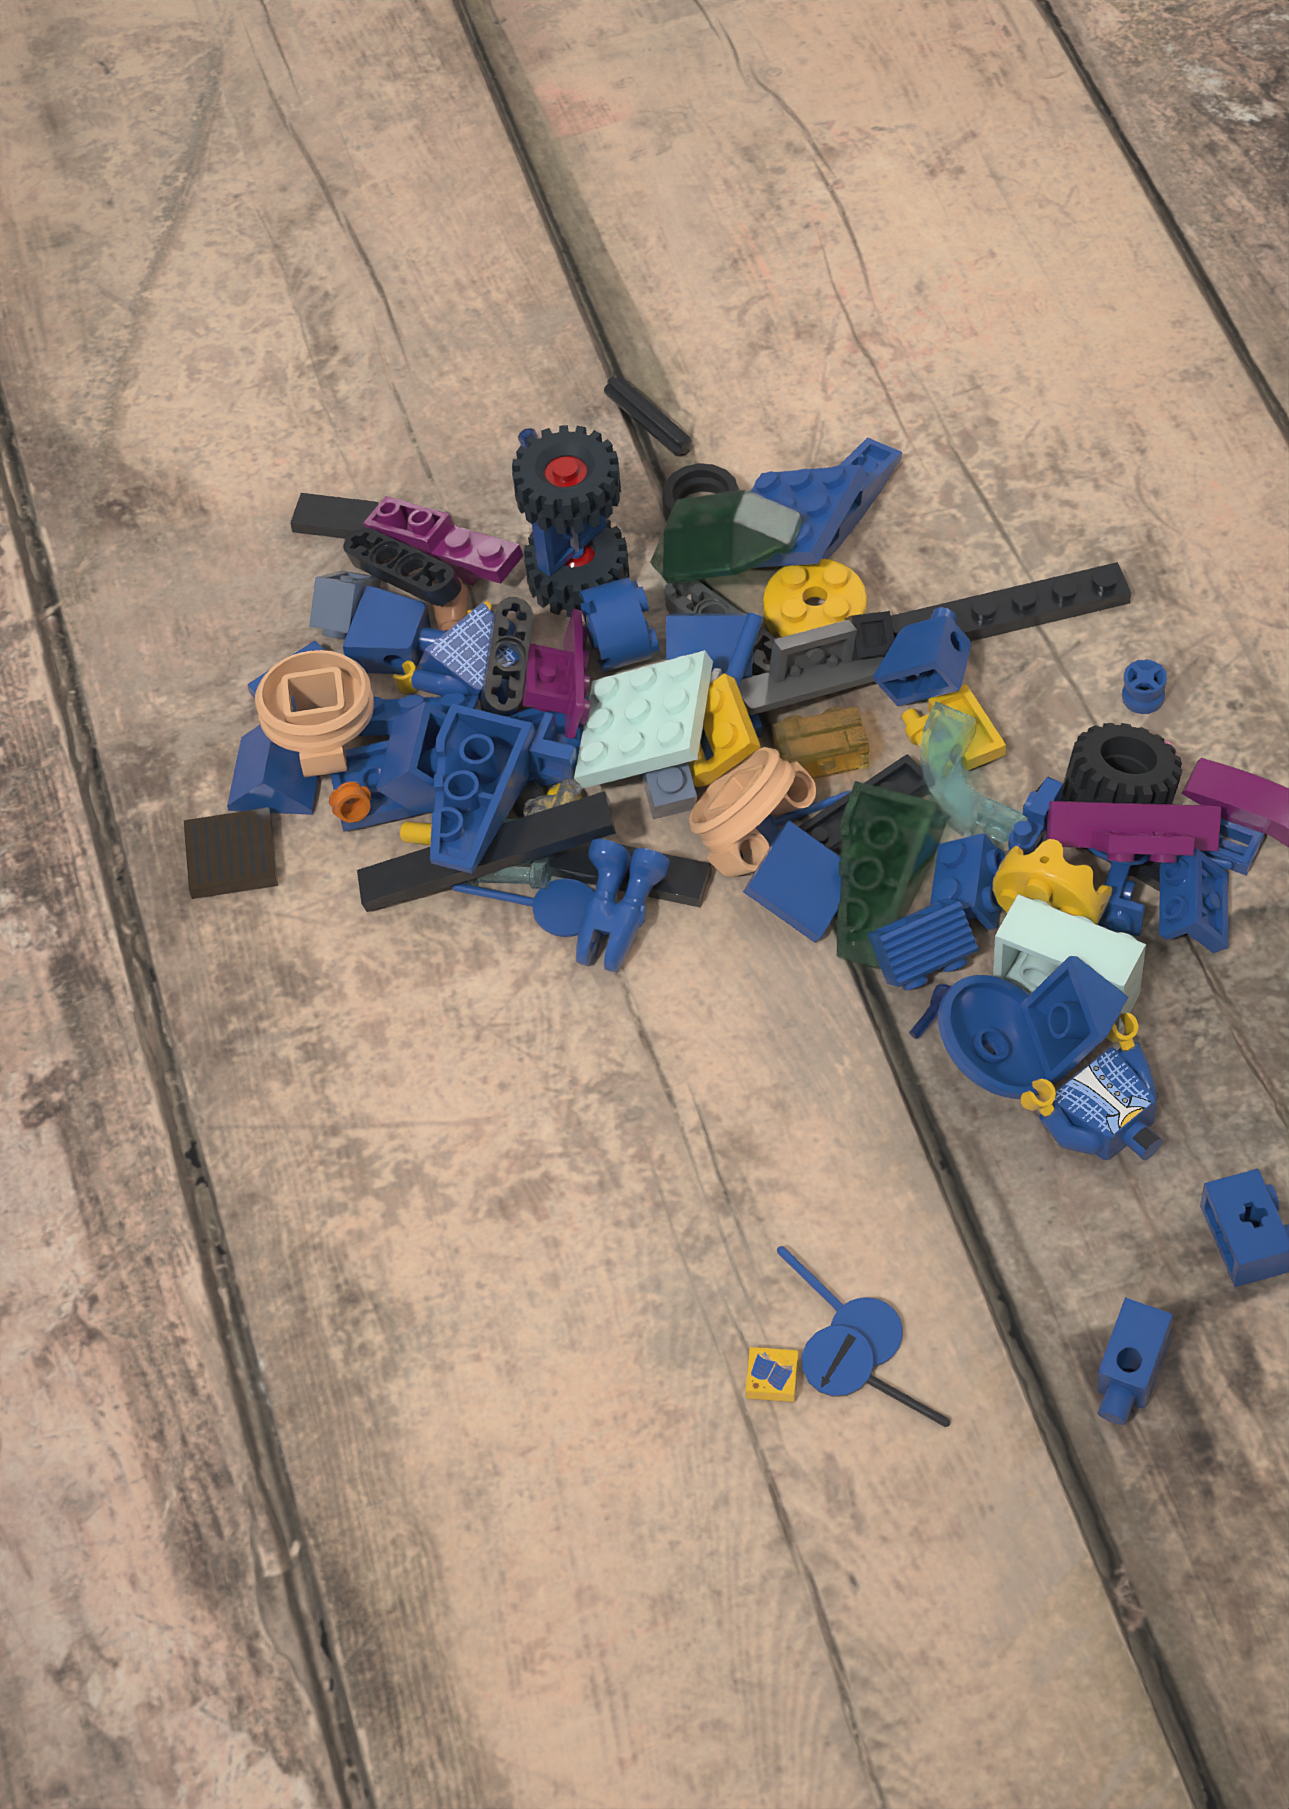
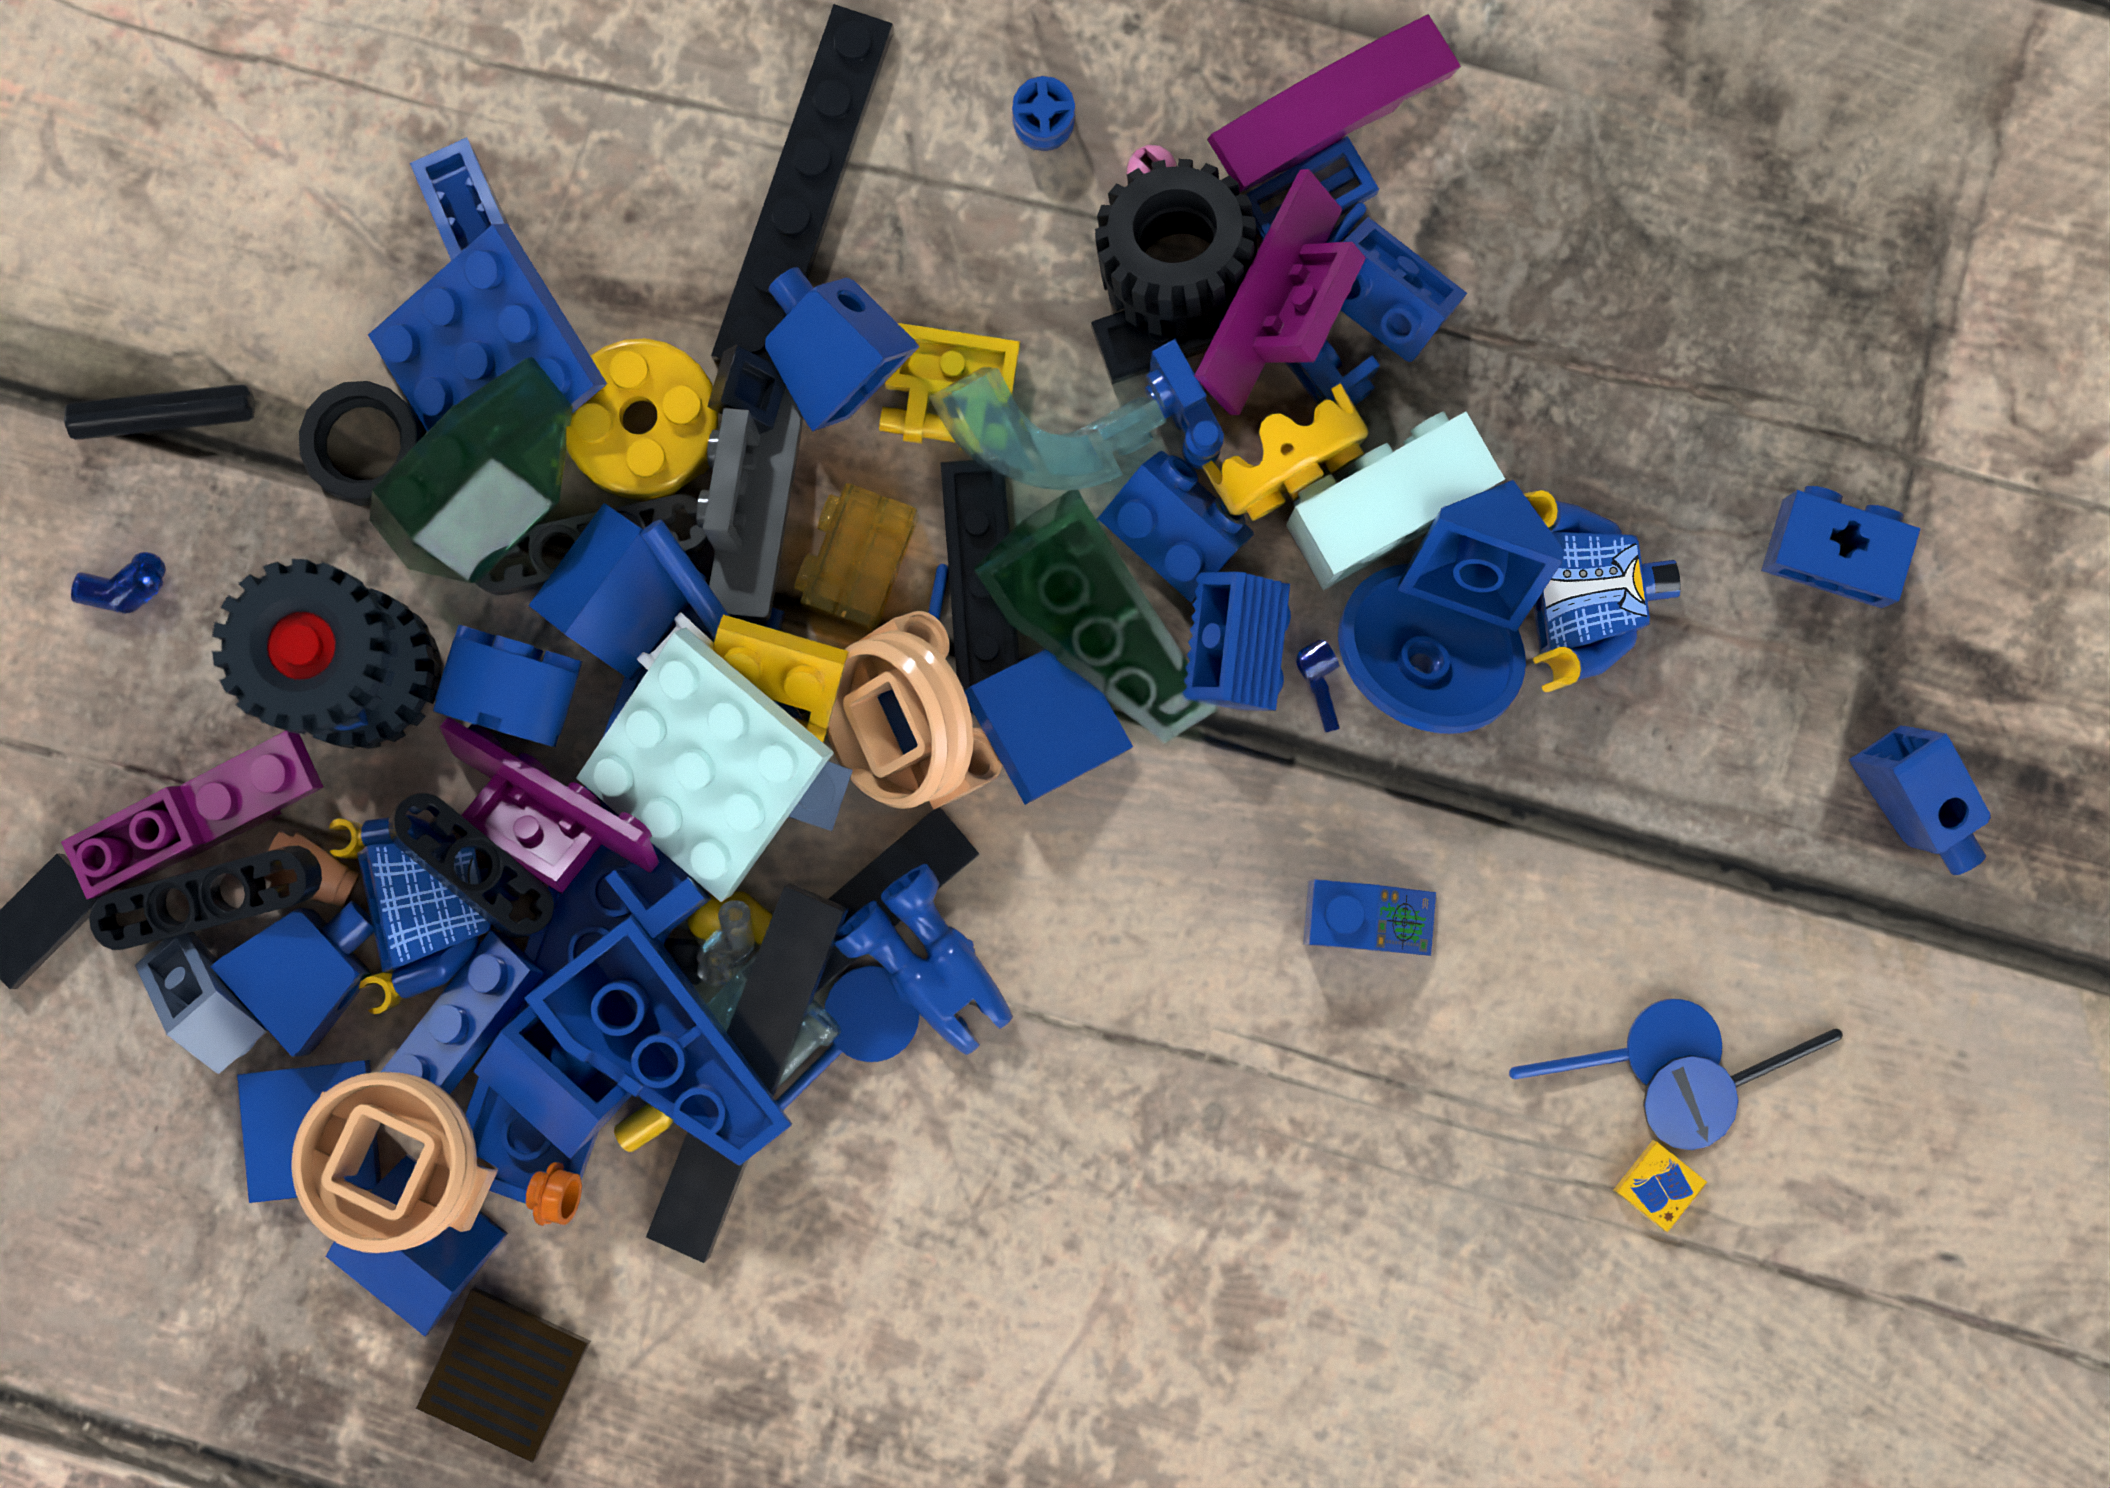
camera: 60 degrees left, 30 degrees up
(814, 1109) = (1369, 917): none -> blue slope

